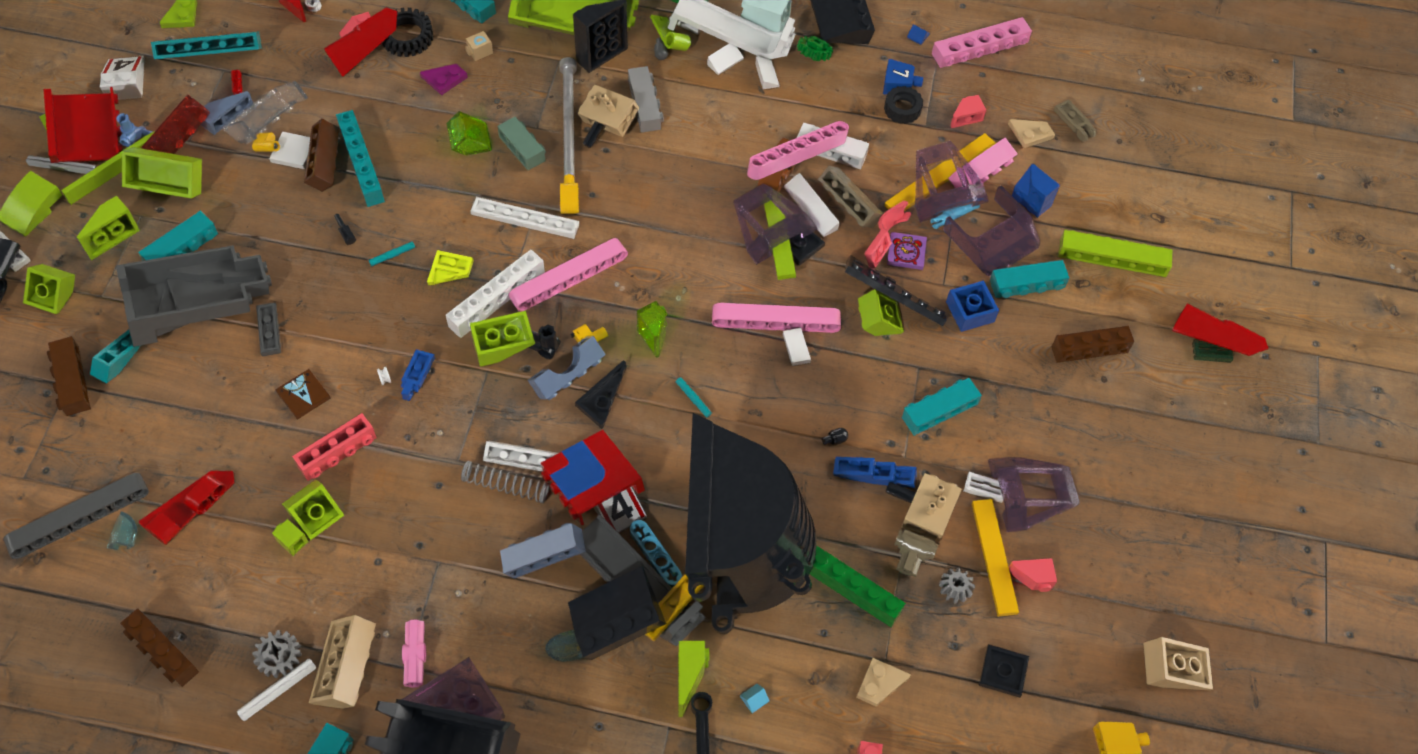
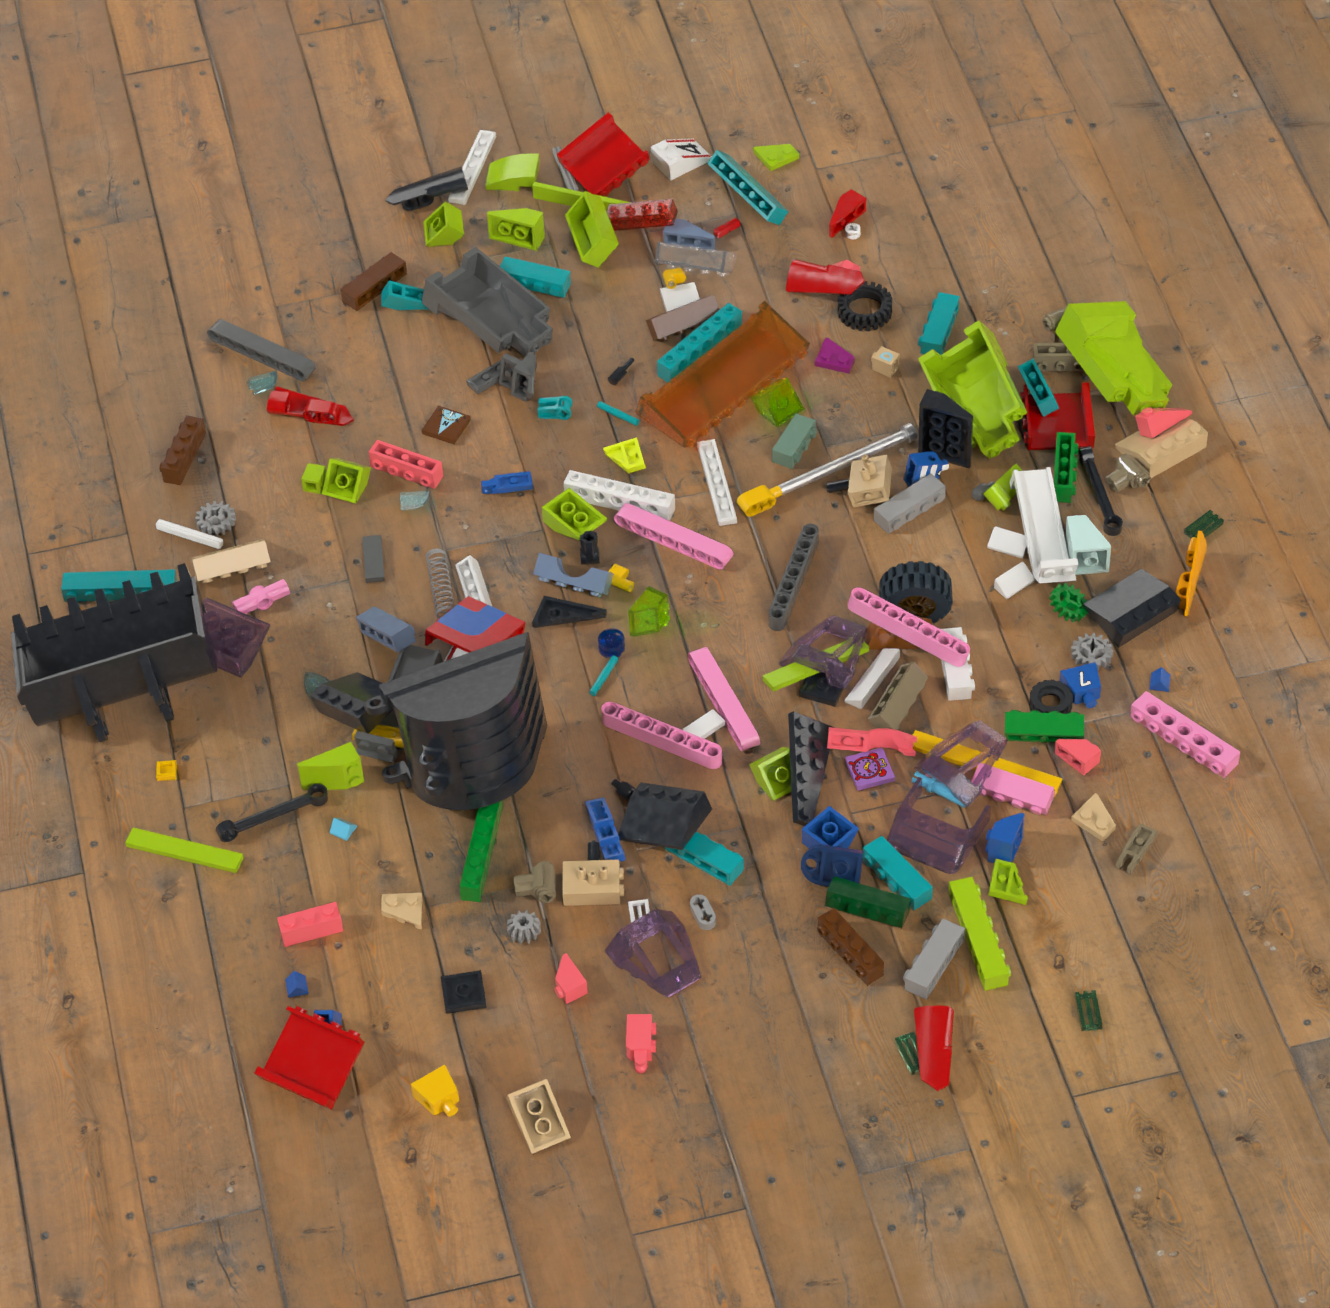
camera: 70 degrees right, 10 degrees down
(129, 131) = (616, 183): medium blue pin -> none
(298, 305) = (518, 375): none -> dark grey piece
(351, 297) = (554, 408): none -> teal piece
(380, 461) = (413, 500): none -> clear light blue brick
(384, 376) = (492, 464): white bush -> none
(413, 159) = (724, 377): none -> clear orange windscreen
(429, 528) = (373, 559): none -> dark grey tile
(618, 67) = (923, 464): none -> blue torso
(662, 375) = (611, 643): none -> clear blue wheel
(680, 216) = (793, 577): none -> dark grey beam
(761, 128) = (918, 589): none -> black wheel
(788, 388) = (661, 735): none -> bright pink beam
(870, 58) = (1101, 650): none -> light grey gear
(897, 416) = (664, 815): none -> black slope
(932, 118) = (1043, 727): none -> green brick
(995, 558) = (573, 946): yellow tile -> none
(1001, 436) = (705, 911): none -> light grey beam
(1008, 317) = (832, 862): none -> dark blue tile
(1053, 311) = (867, 902): none -> dark green brick
(1070, 213) = (1006, 883): none -> lime wing
(1127, 545) = (639, 1040): none -> coral hinge
(1132, 292) = (934, 958): none -> light grey brick
(1215, 217) = (1086, 996): none -> clear green tile

